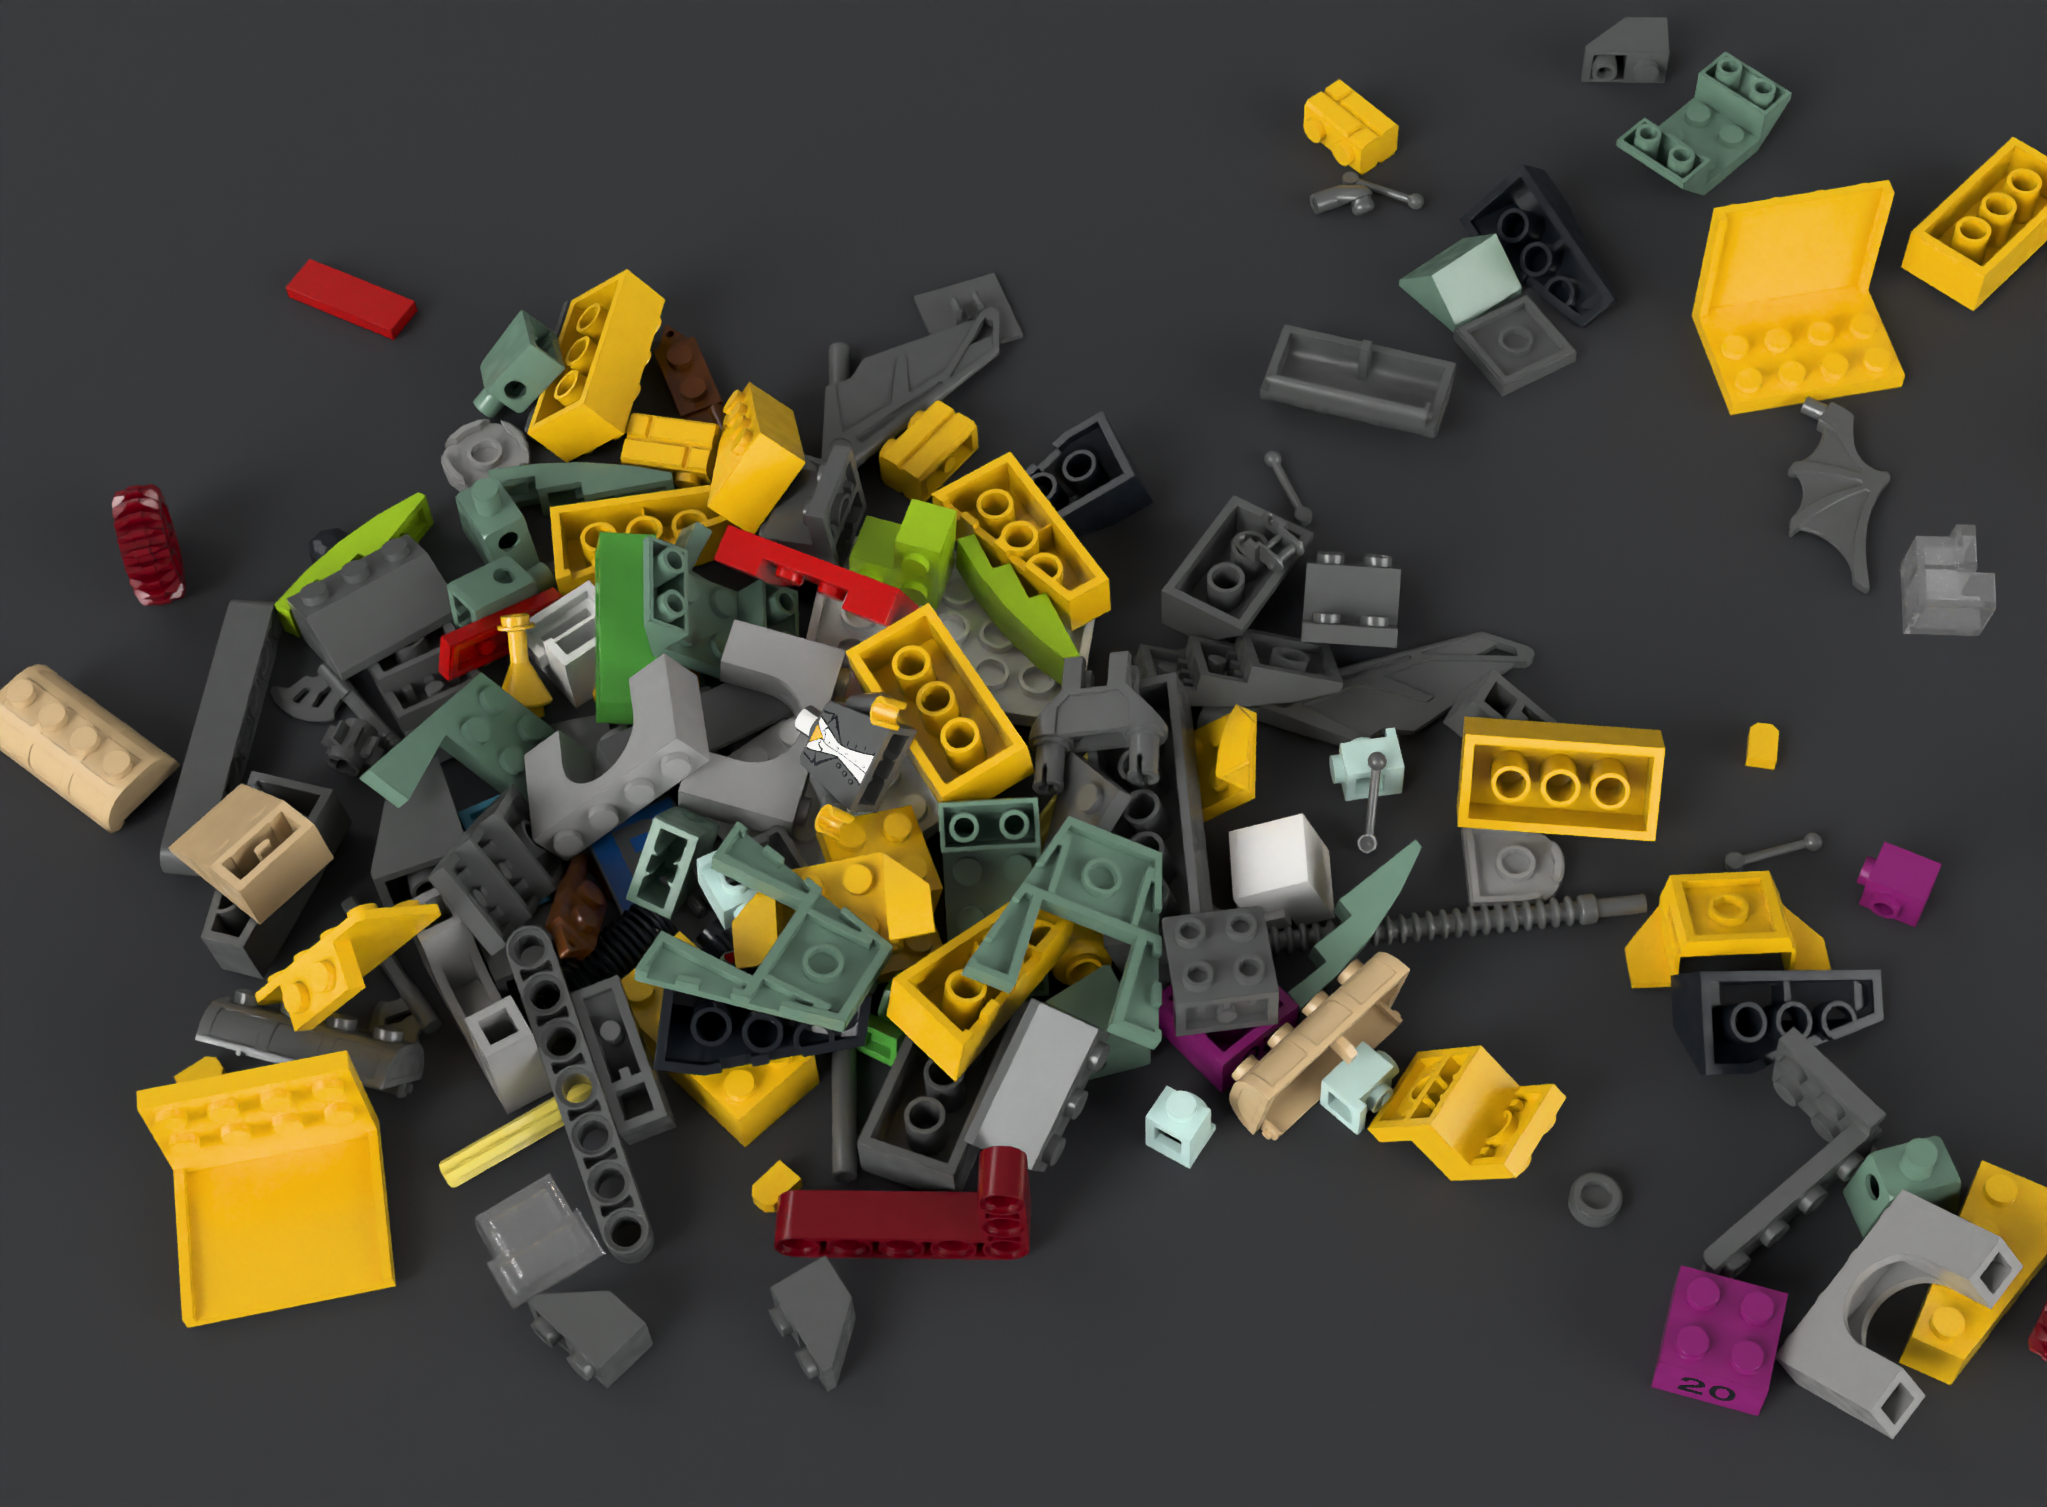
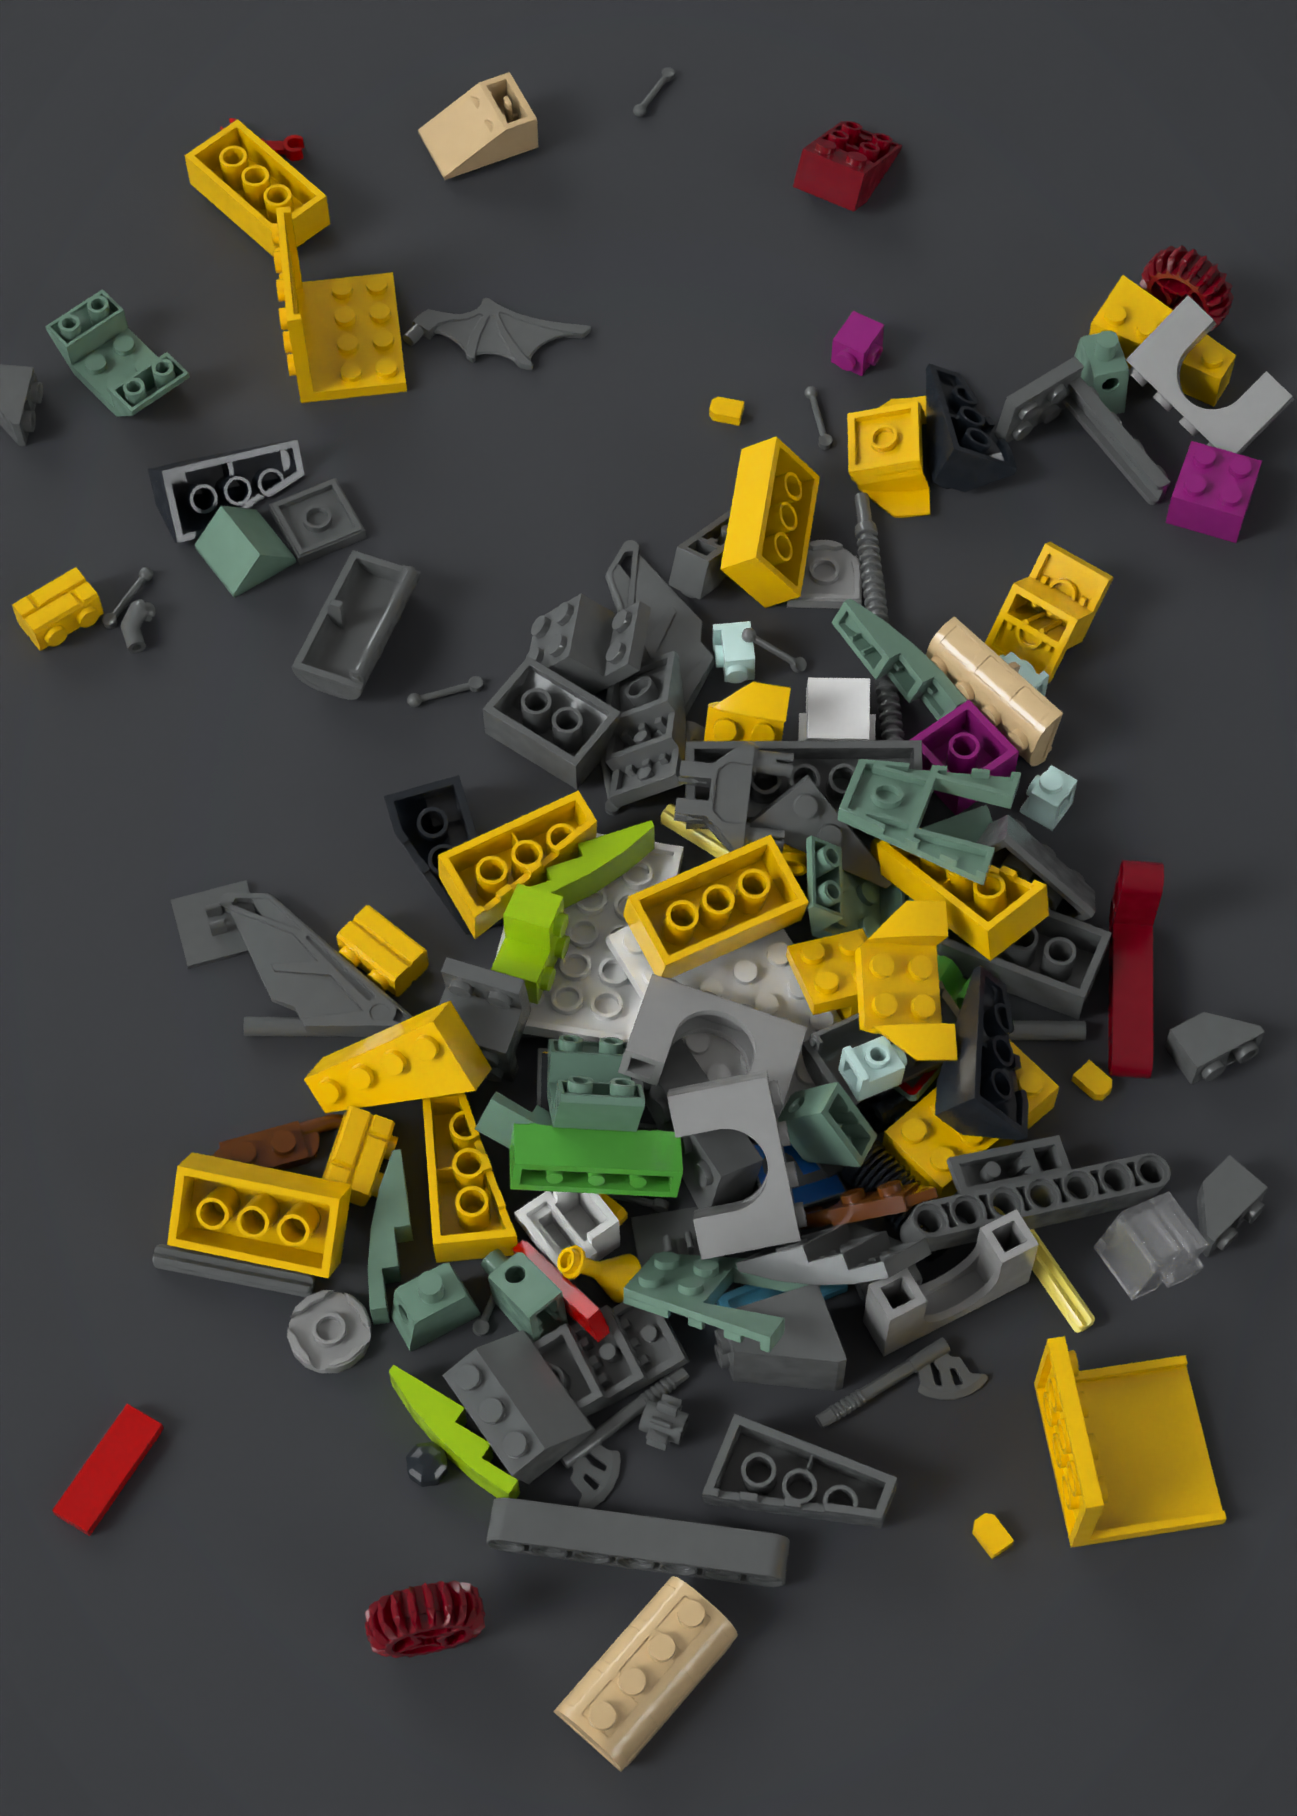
camera: 90 degrees left, 5 degrees up
(254, 850) = (804, 1470): tan slope -> none
(267, 1033) = (987, 1419): dark grey container -> none
(335, 966) = (951, 1368): yellow bracket -> none
(519, 366) = (246, 1286): sand green torso -> none
(788, 567) = (561, 1033): red wedge -> none
(813, 970) = (958, 988): sand green wing -> none
(852, 755) = (764, 963): dark grey torso -> none
(1221, 971) = (954, 729): dark grey bracket -> none
(1258, 551) = (536, 673): dark grey piece -> none
(1595, 1199) = (1101, 553): dark grey tile -> none
(1942, 586) = (609, 270): clear plate -> none

